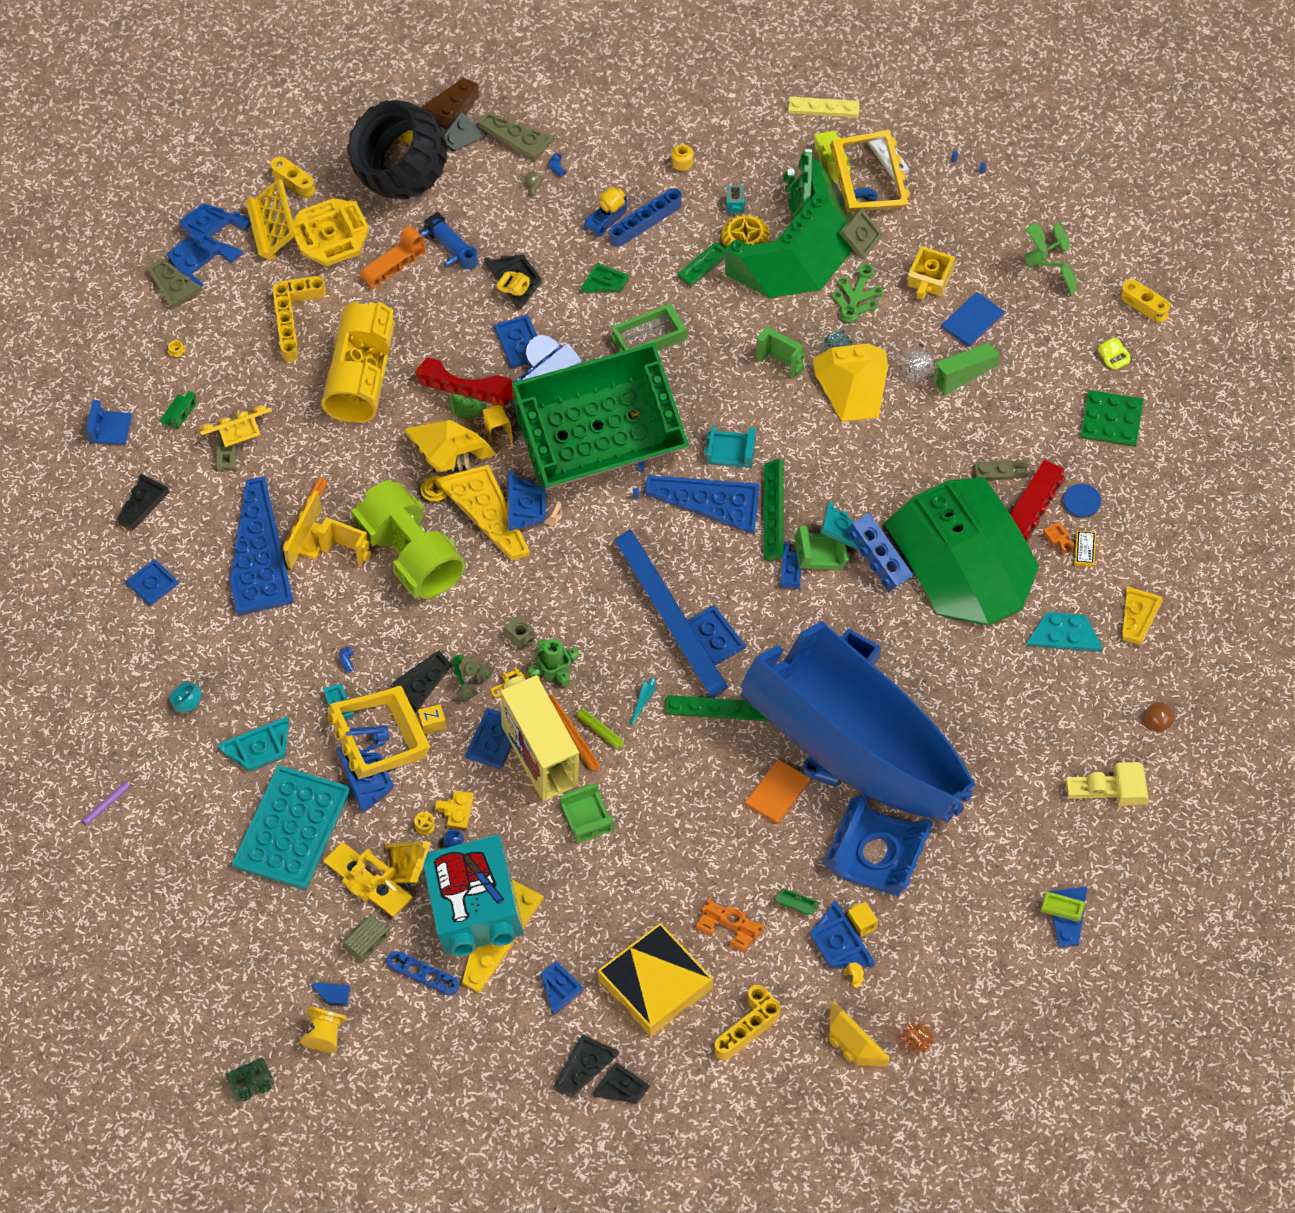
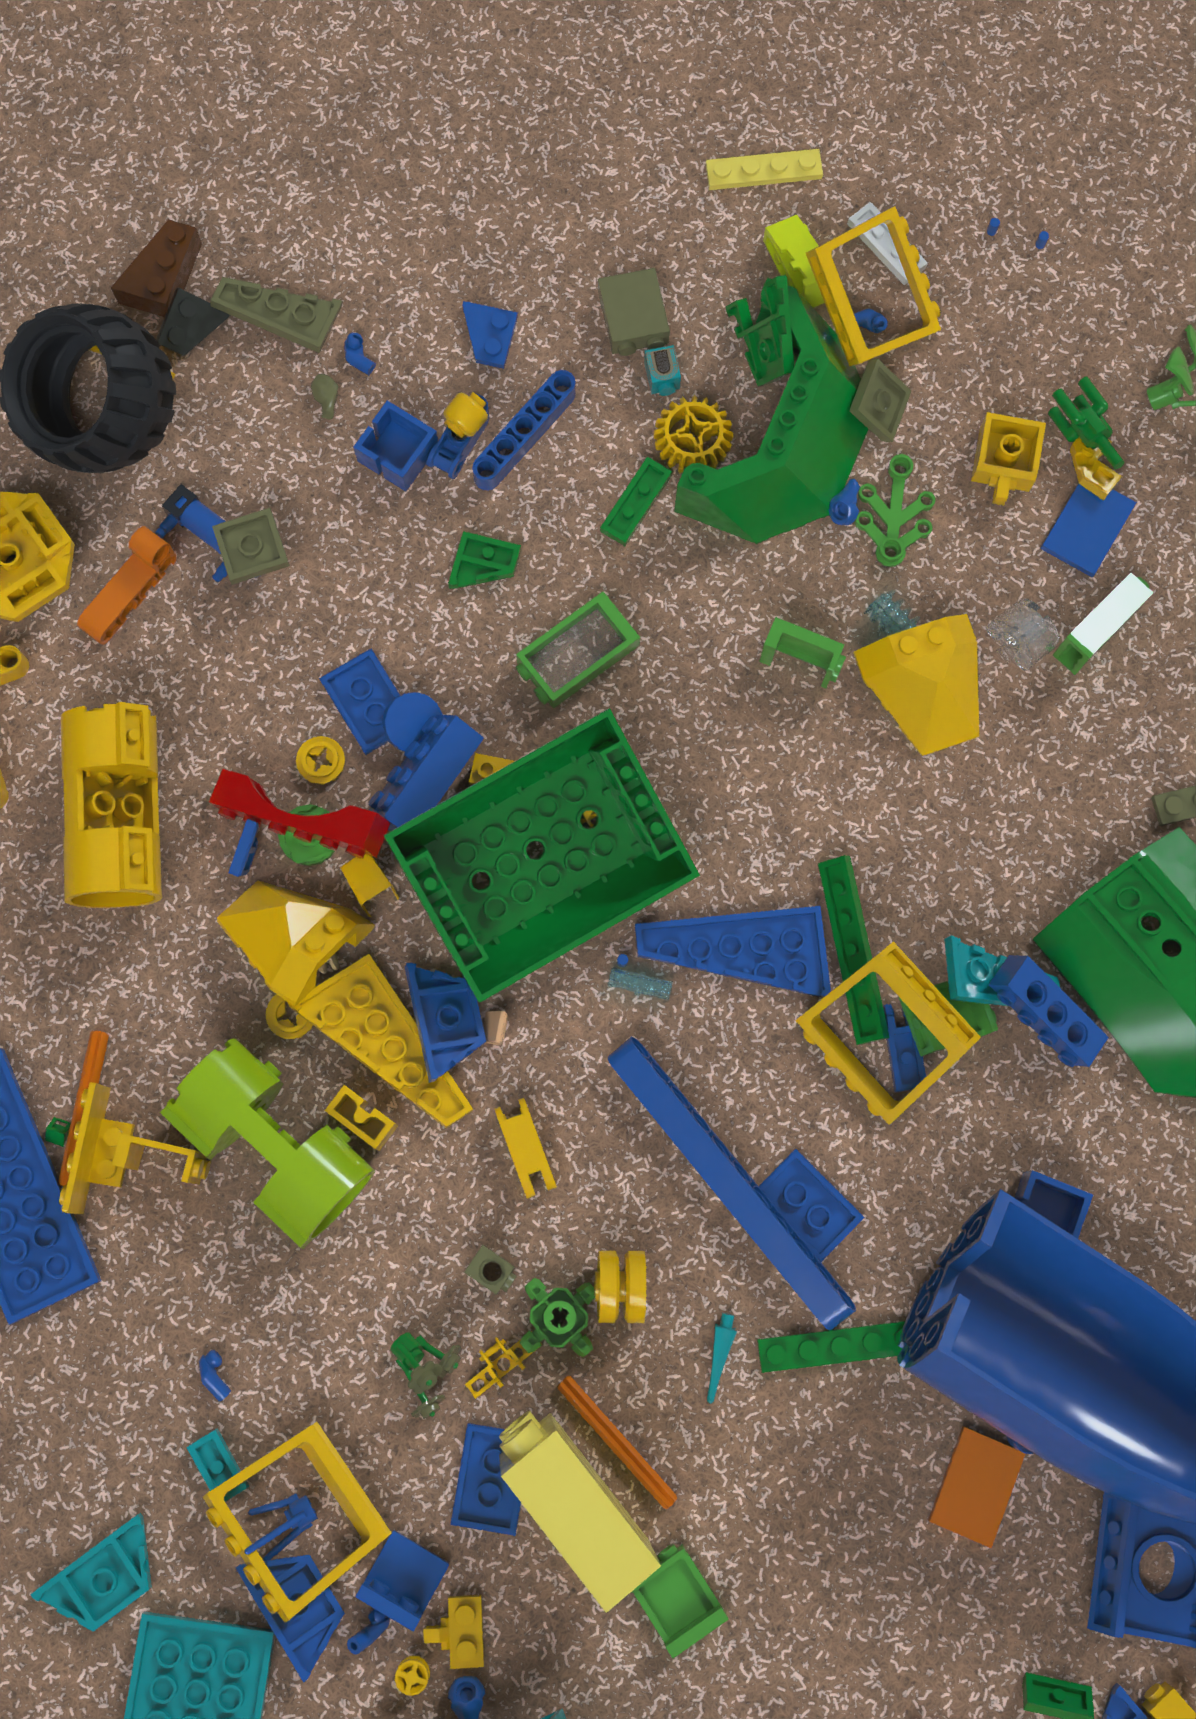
camera: 15 degrees left, 20 degrees up
(285, 527) = (57, 1133): none -> green piece
(411, 796) = (370, 1633): none -> blue arm
(423, 678) = (348, 1391): pearl dark grey wing -> none
(429, 400) = (245, 850): none -> blue tile
(430, 776) = (402, 1580): none -> blue bracket
(431, 719) = (380, 1470): yellow brick -> none
(468, 547) = (371, 1127): none -> yellow brick
(470, 246) = (250, 546): none -> olive plate
(483, 359) = (315, 747): none -> yellow gear
(516, 264) = (337, 582): pearl dark grey wing -> none
(516, 286) = (343, 602): yellow piece -> none
(555, 575) = (525, 1148): none -> yellow piece
(570, 214) = (401, 445): none -> blue piece
(593, 647) = (620, 1286): none -> yellow wheel
(599, 728) = (661, 1425): lime axle -> none
(638, 166) = (490, 332): none -> blue wing
(643, 507) = (640, 983): none -> clear light blue pin
(682, 157) = (559, 307): yellow head -> none
(725, 166) = (633, 311): none -> olive brick
(730, 448) = (758, 842): teal panel -> none
(806, 531) = (921, 999): none -> yellow windscreen
(826, 286) = (843, 505): none -> blue animal
(980, 286) = (1091, 472): none -> yellow tile
(981, 262) = (1086, 421): none -> green plant

